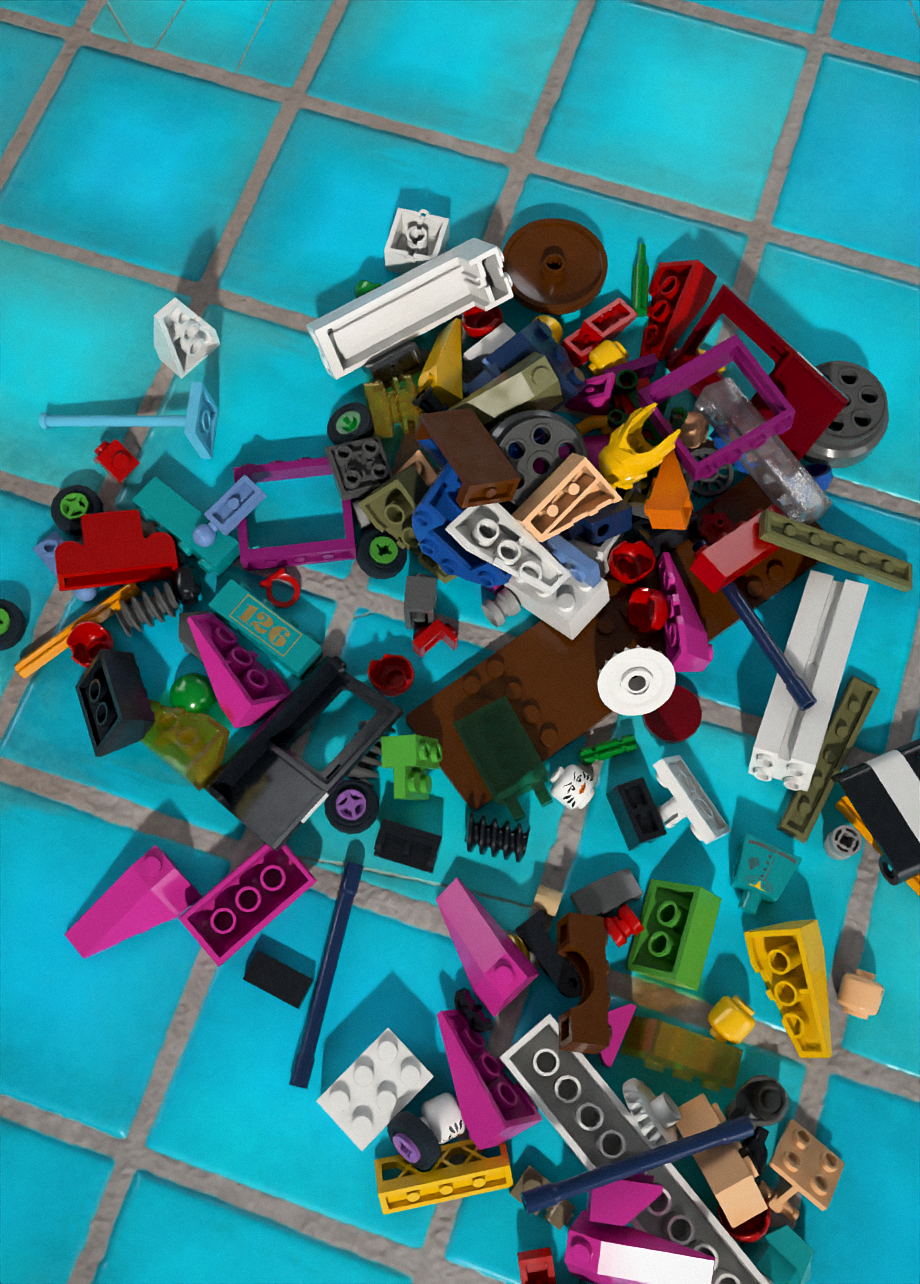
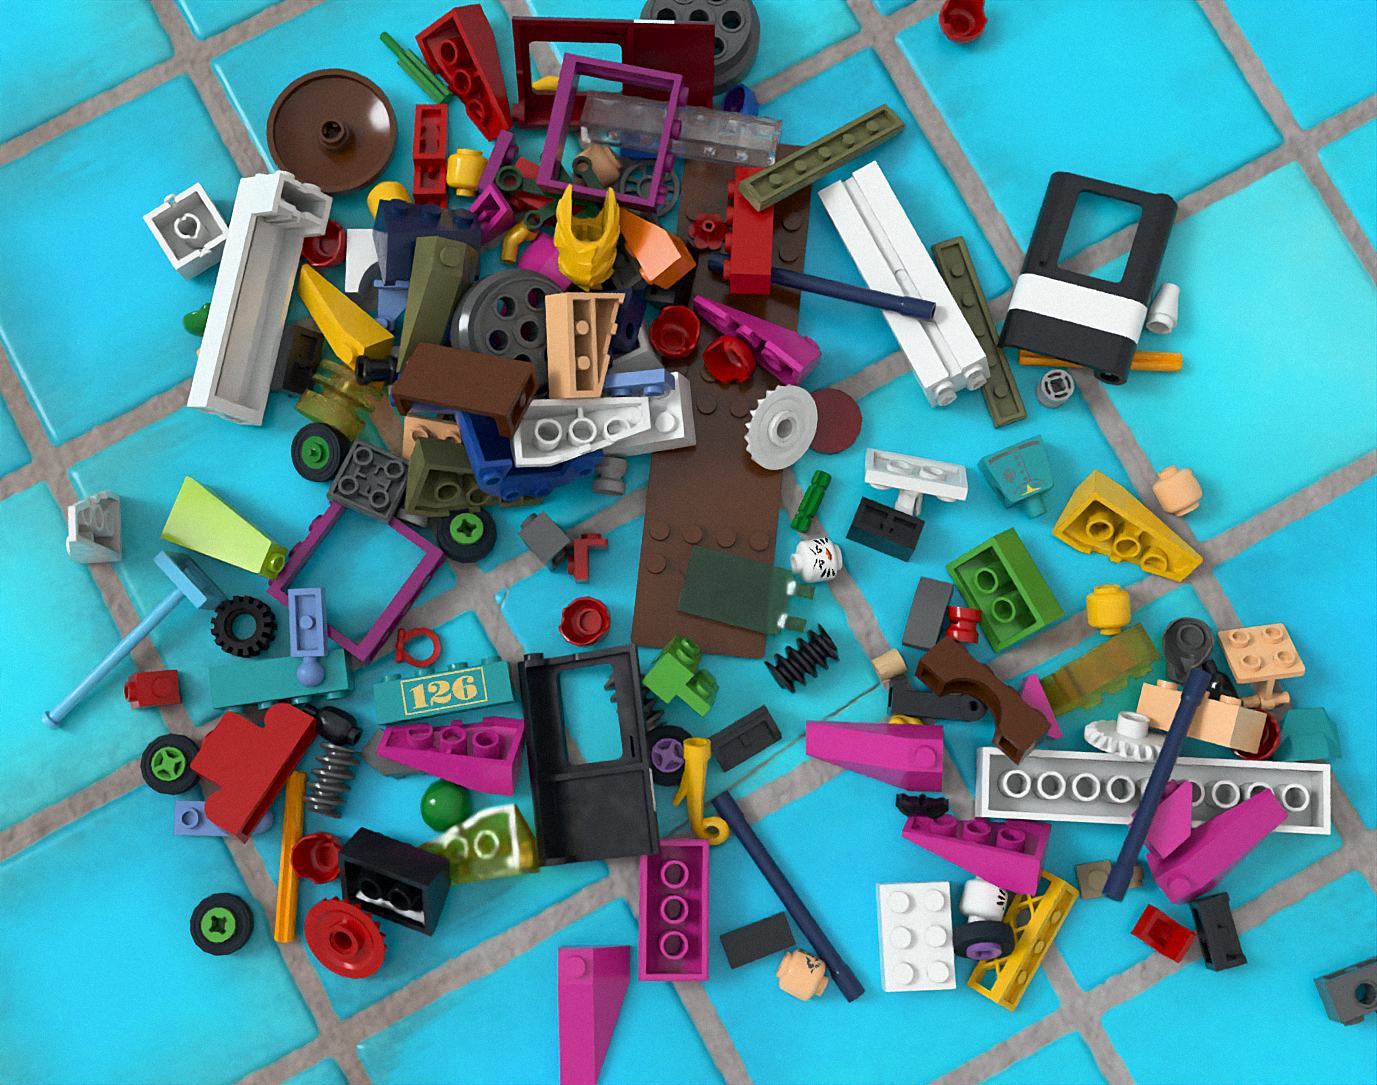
camera: 45 degrees left, 10 degrees up
(50, 704) = (345, 938): none -> red gear
(197, 463) = (229, 612): none -> black tyre
(248, 410) = (218, 530): none -> lime slope
(279, 1032) = (802, 975): none -> light nougat head
(367, 820) = (696, 755): none -> yellow plant

